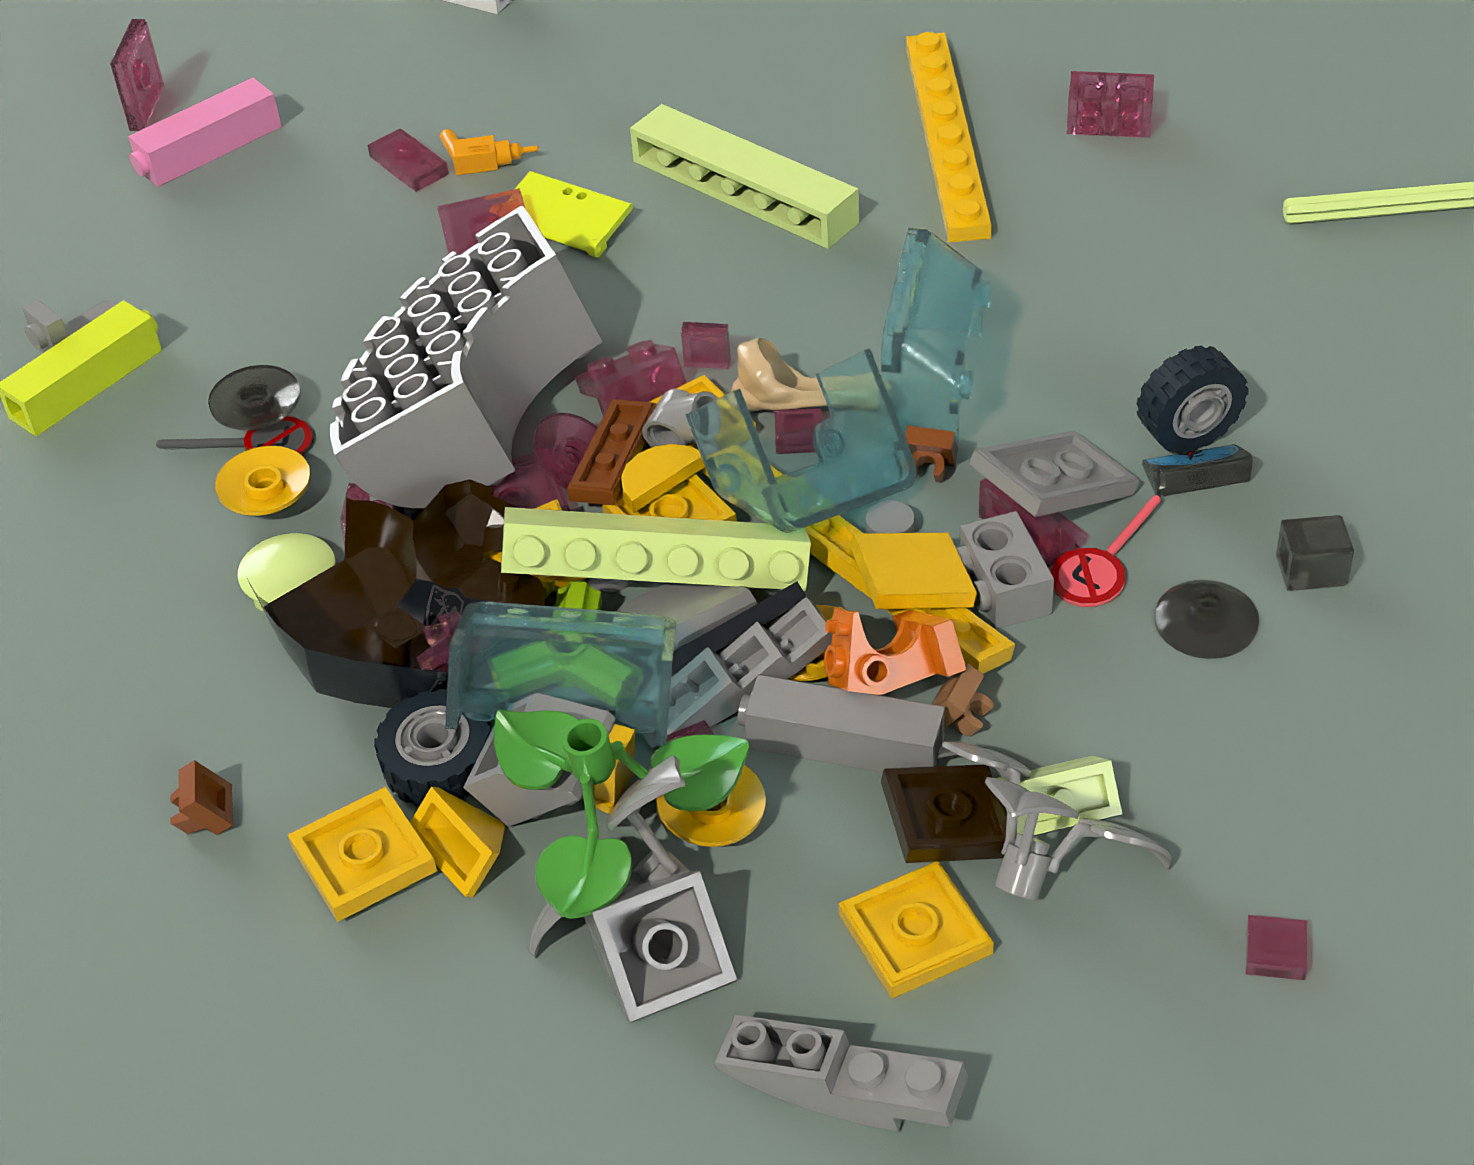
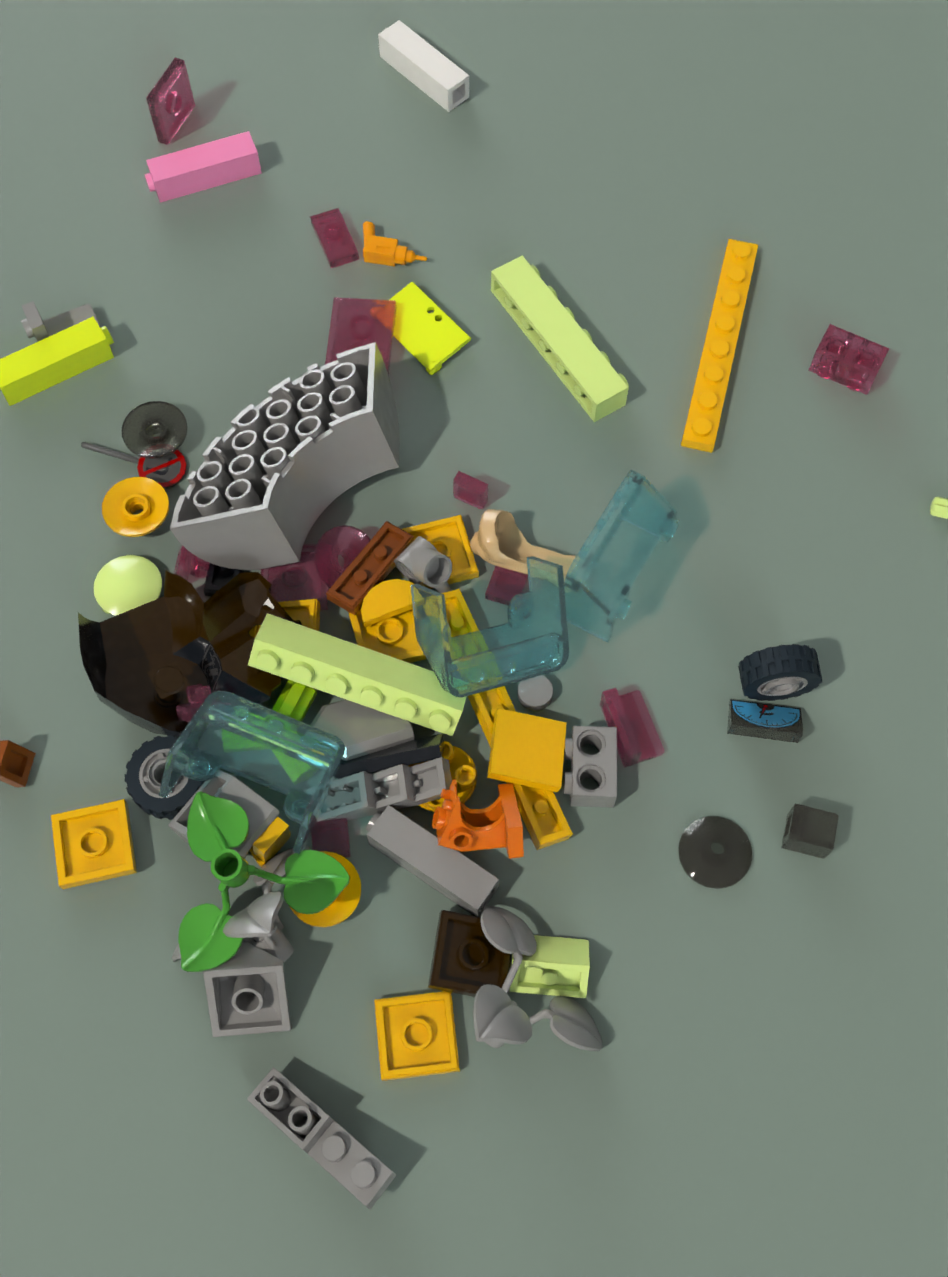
camera: 15 degrees right, 20 degrees up
(459, 838) = (159, 854): yellow slope -> none
(638, 376) = (411, 500): clear pink bracket -> none
(932, 447) = (587, 641): dark orange tile -> none
(959, 697) = (512, 869): medium nougat tile -> none
(1054, 473) = (659, 698): light grey tile -> none
(1093, 575) = (652, 785): piece -> none
(1276, 947) = (640, 1142): clear pink tile -> none

